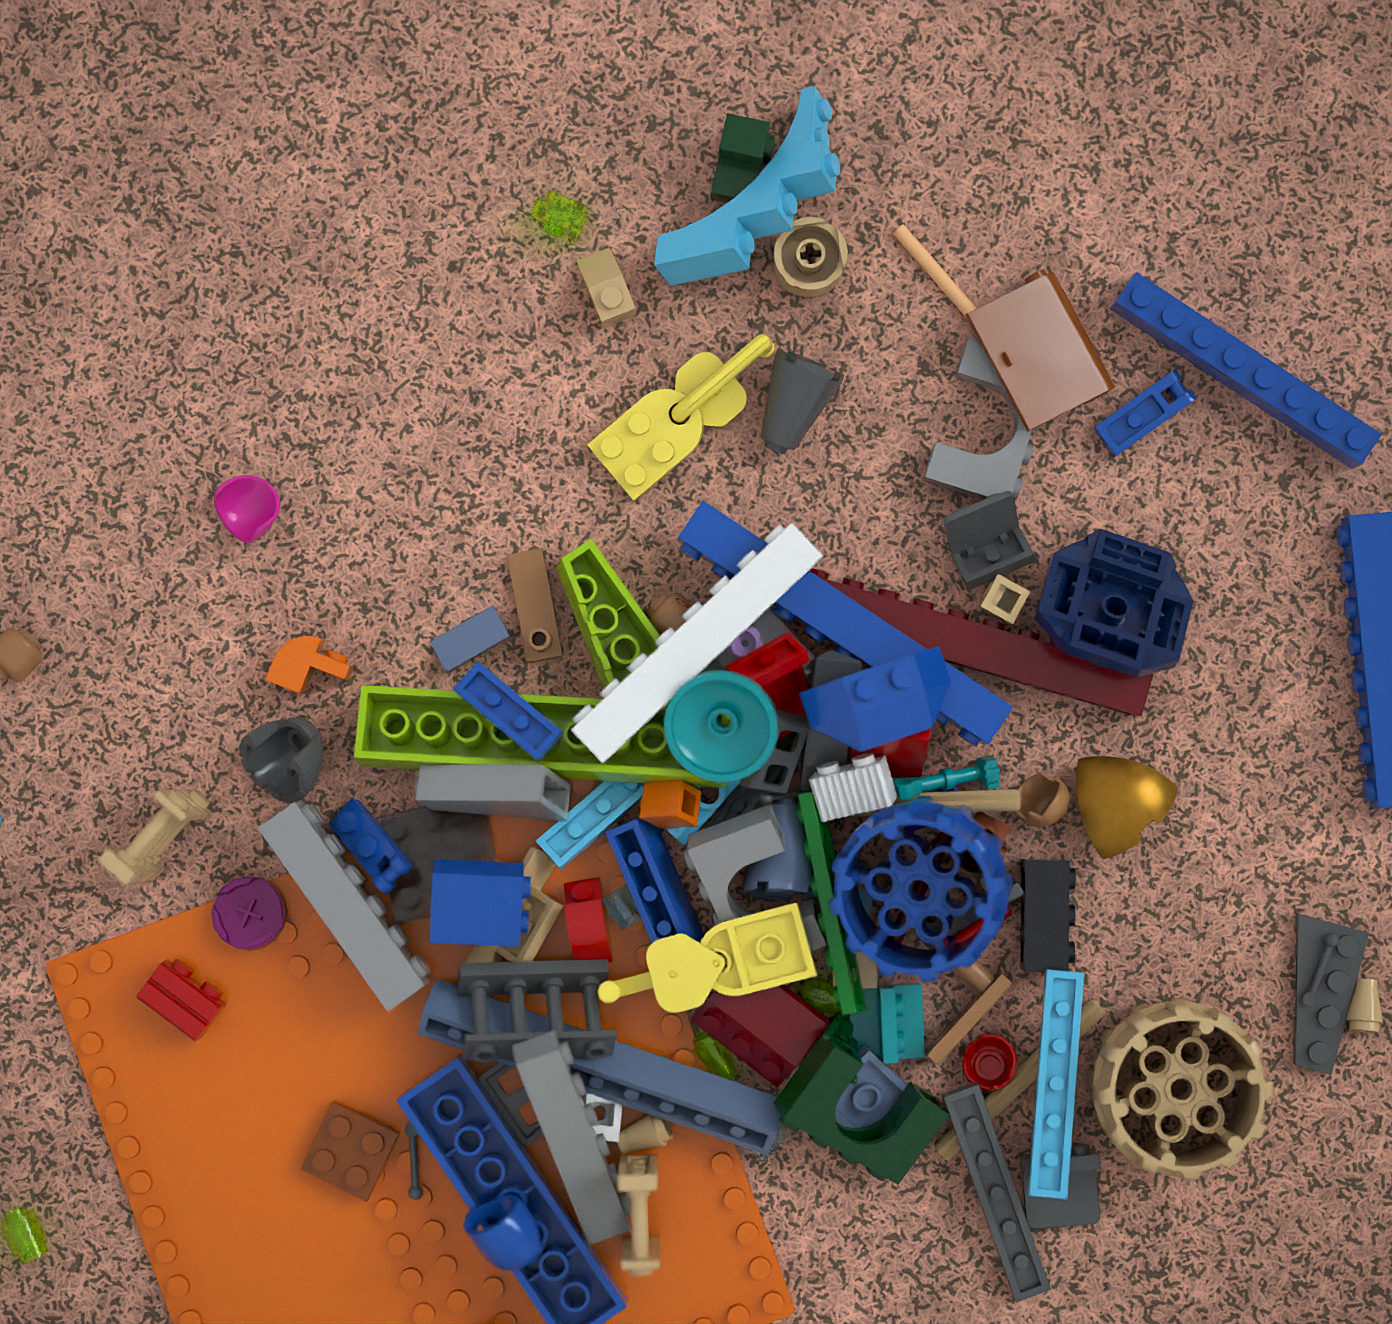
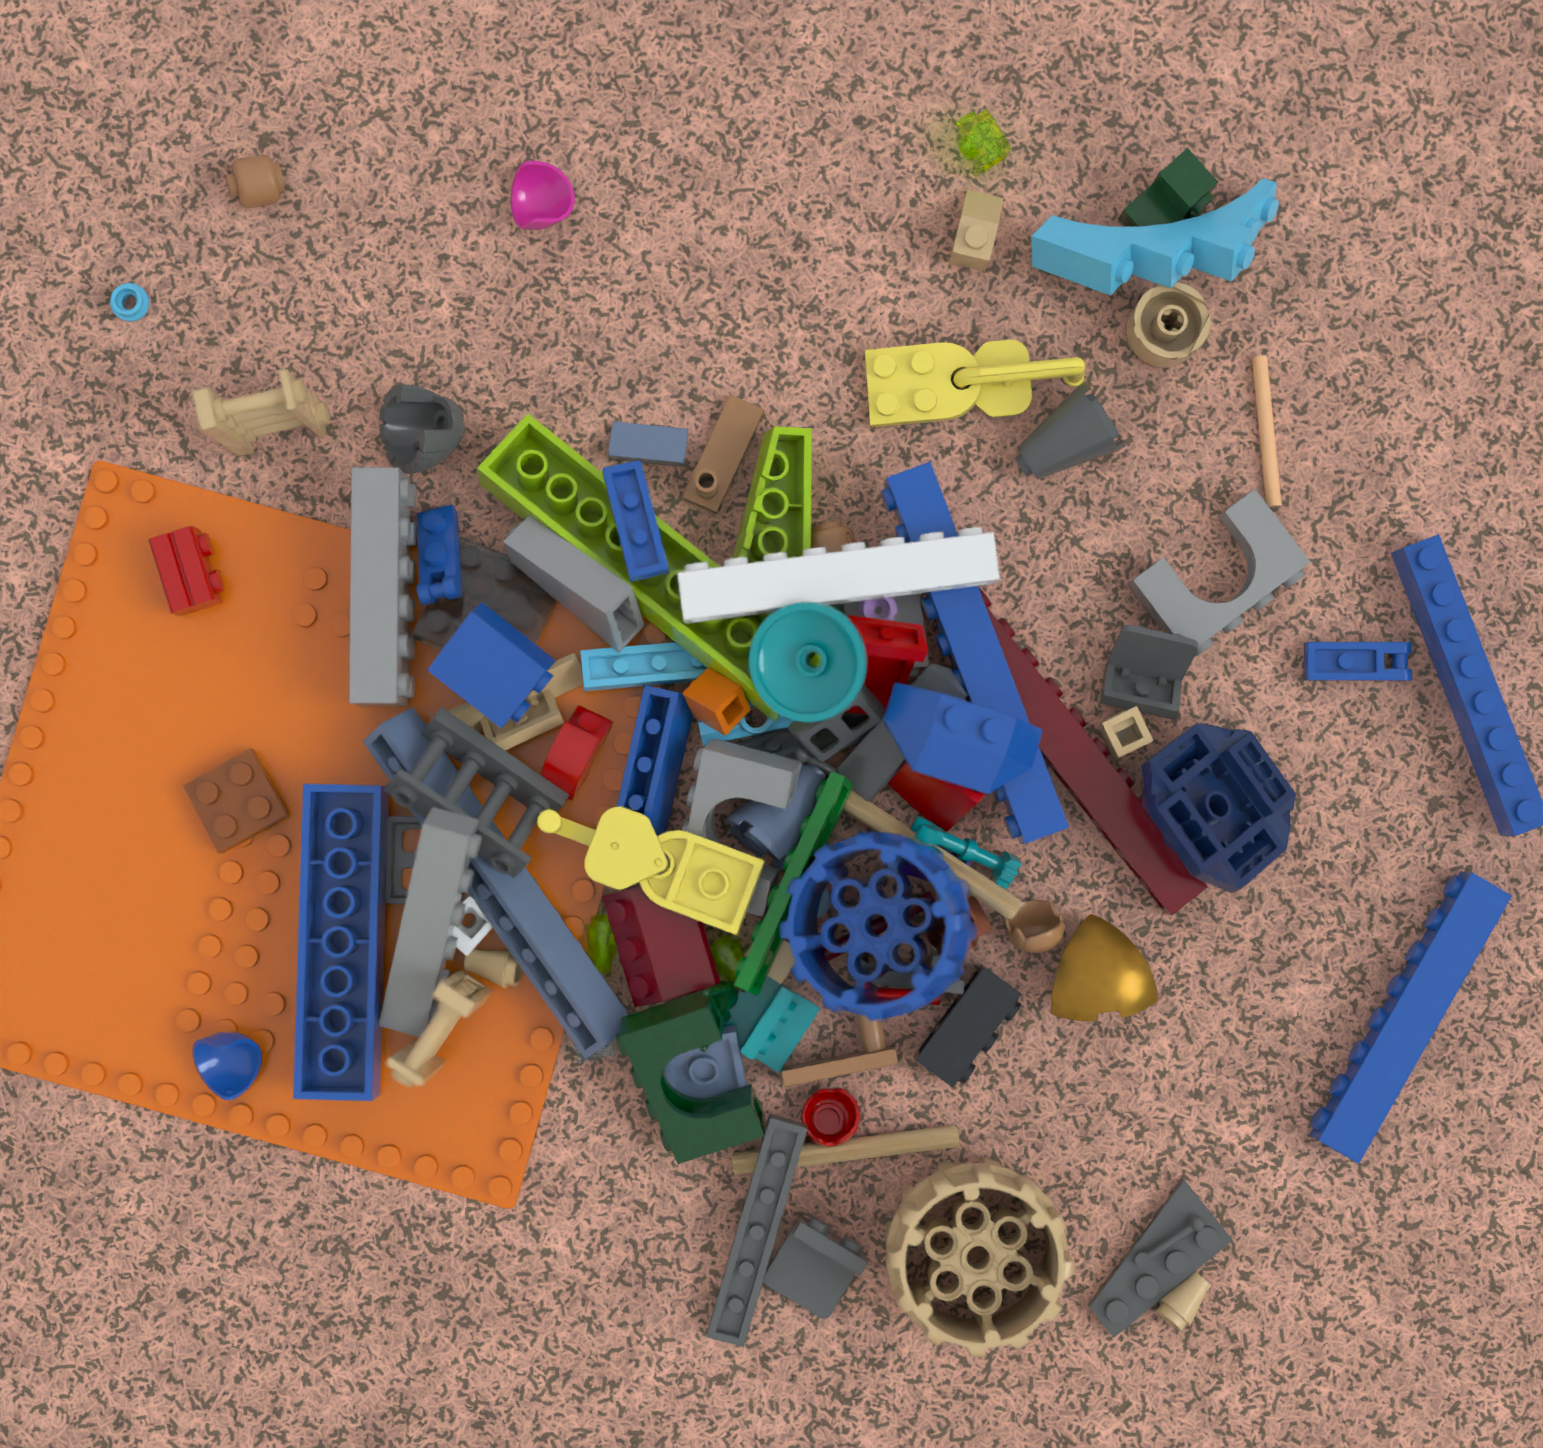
camera: 30 degrees right, 0 degrees up
(249, 913) = (295, 539): magenta tile -> none
(298, 658) = (491, 355): orange brick -> none
(415, 1191) = (266, 874): dark grey hinge -> none
(510, 1242) = (312, 973): blue piece -> none
(622, 907) = (612, 759): clear light blue plate -> none
(852, 787) = (882, 798): white brick -> none
(1040, 350) = (1308, 543): door -> none
(1056, 1084) = (873, 1176): medium azure plate -> none

